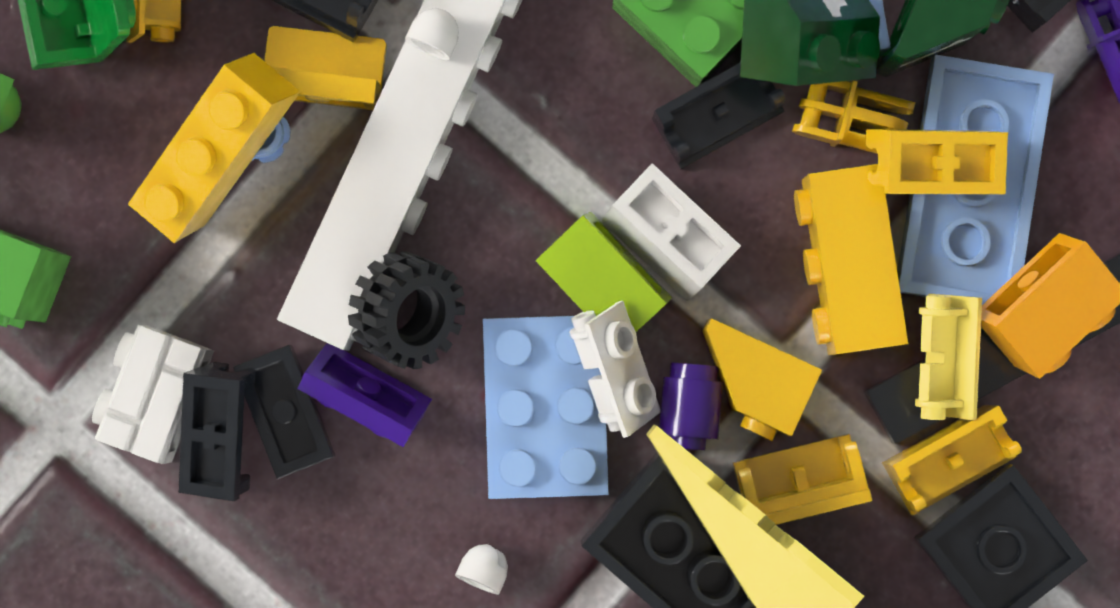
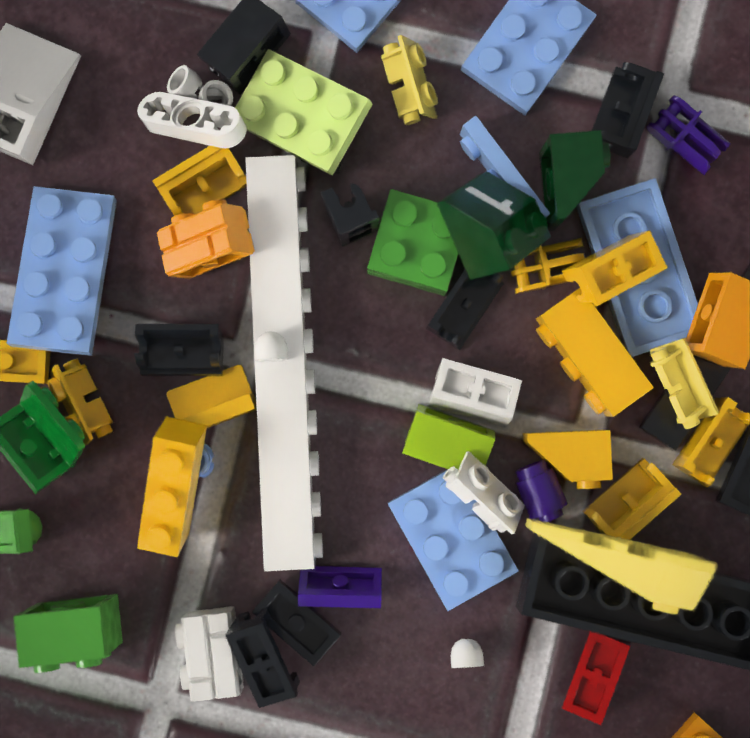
camera: 25 degrees left, 0 degrees up
(381, 302) = (323, 519): black tyre -> none

